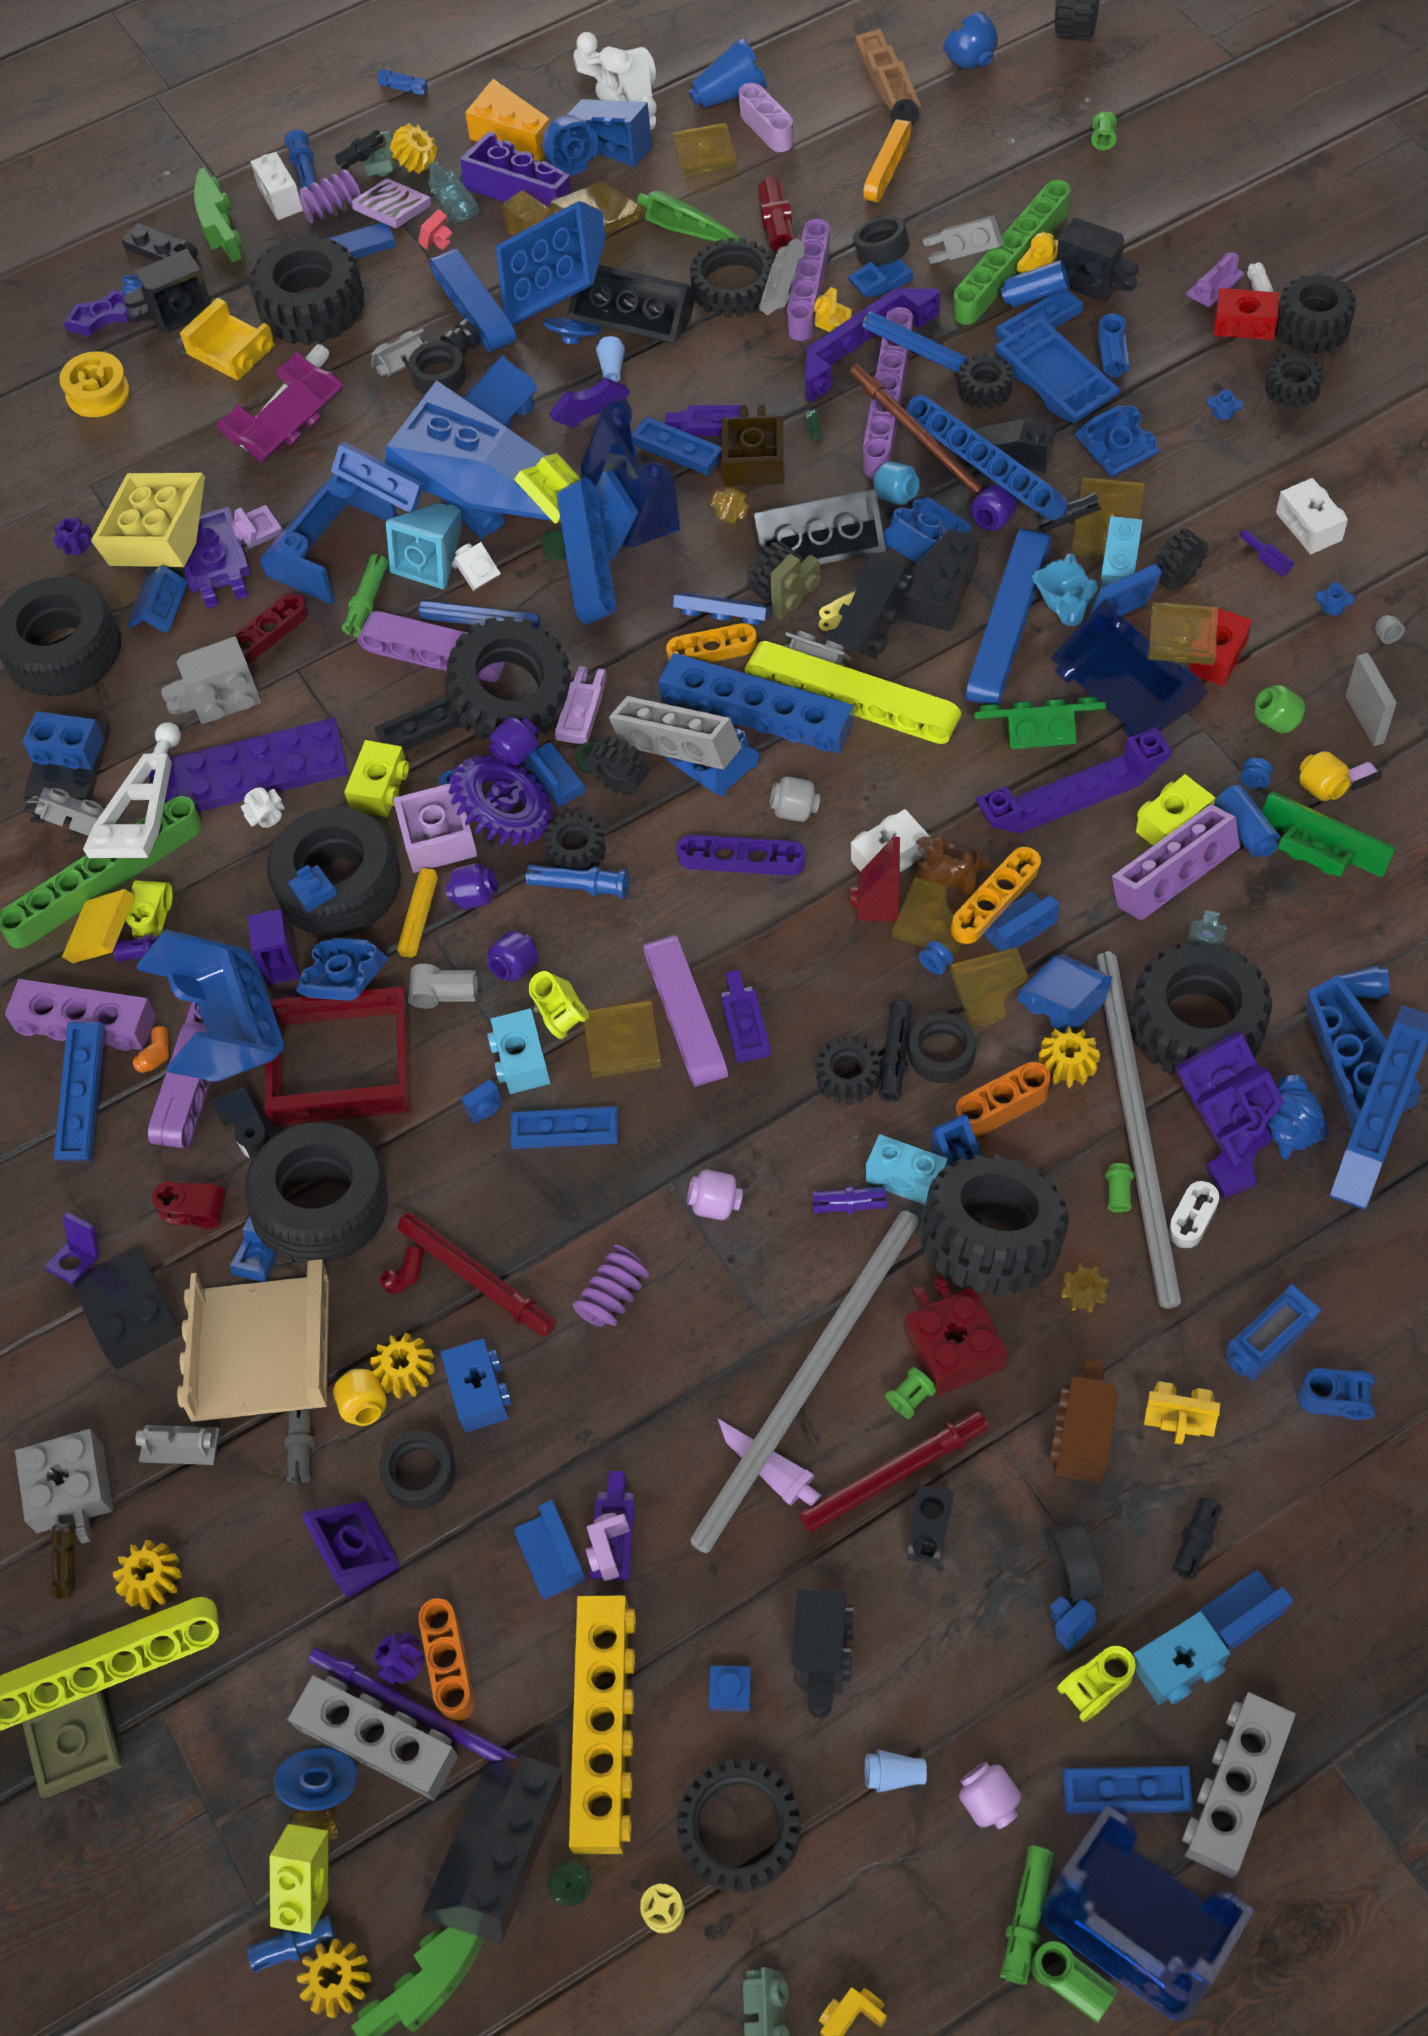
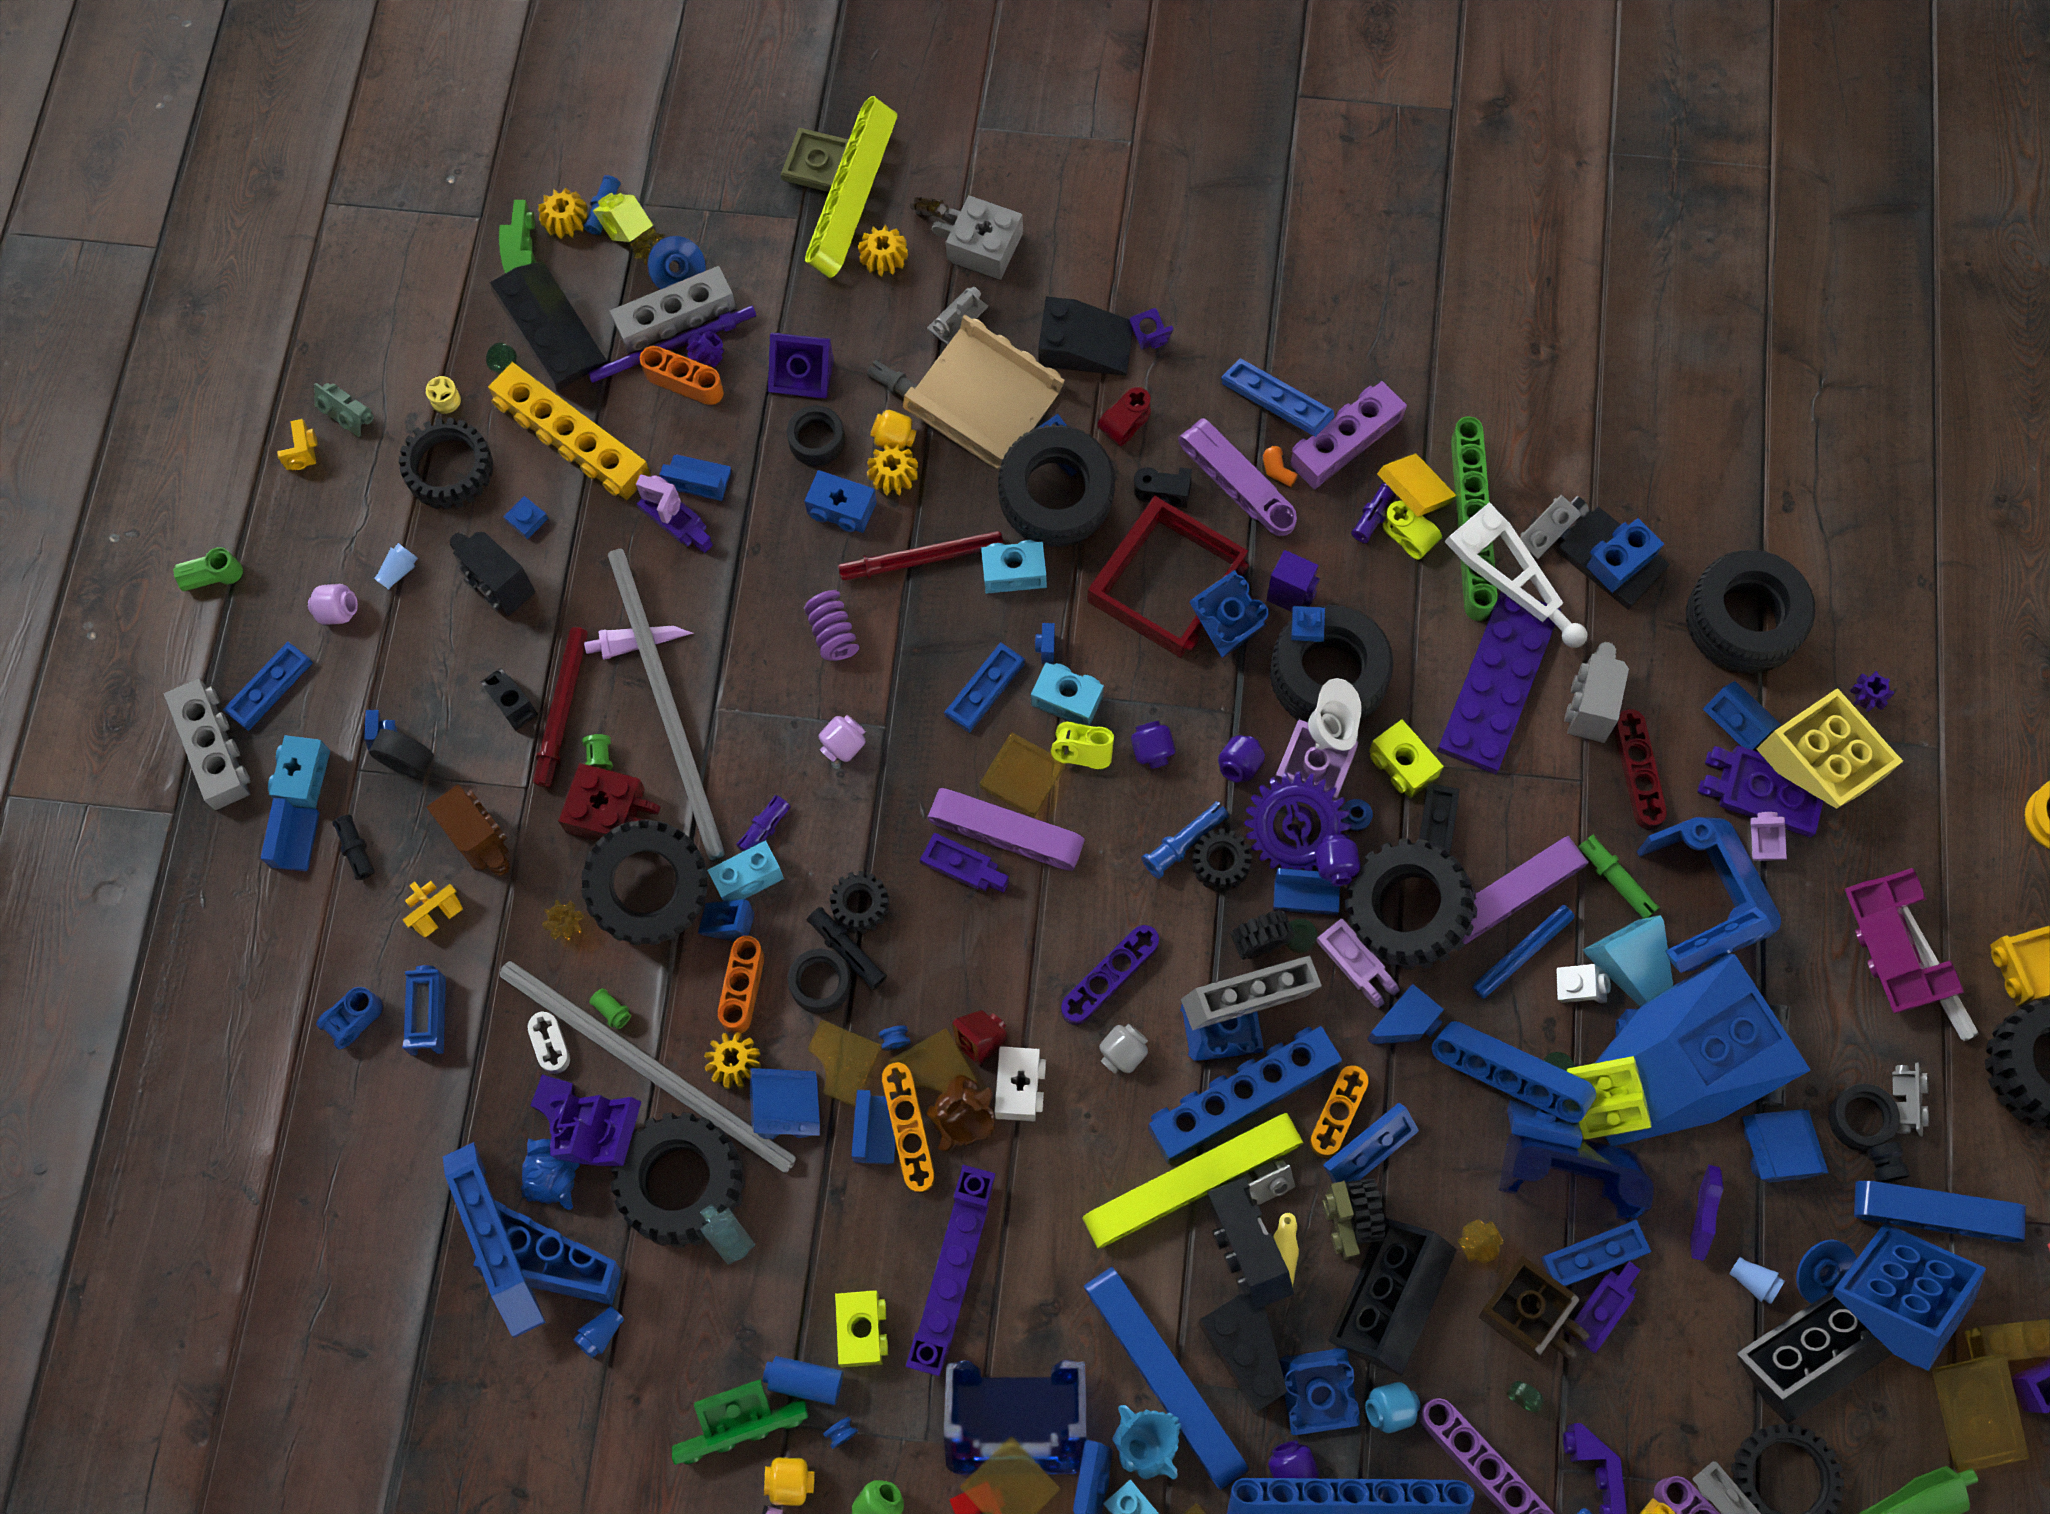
camera: 125 degrees right, 10 degrees up
(230, 1000) = (1248, 520): blue windscreen -> none
(262, 807) = (1443, 660): white gear -> none
(392, 812) = (1336, 717): none -> white piece
(399, 1280) = (959, 514): dark red arm -> none
(417, 913) = (1254, 711): yellow axle -> none
(418, 1166) = (1027, 576): none -> medium azure brick
(431, 985) = (1174, 675): light grey piece -> none
(601, 646) = (1408, 1019): none -> blue slope
(875, 390) = (1504, 1463): copper bar -> none
(1023, 1932) = (254, 568): bright green pin -> none
(1040, 725) = (1037, 1305): green bracket -> none
(1093, 1687) = (335, 712): neon yellow piece -> none
(1142, 1920) = (194, 634): clear blue windscreen -> none
(1176, 862) = (813, 1282): medium lavender brick -> none

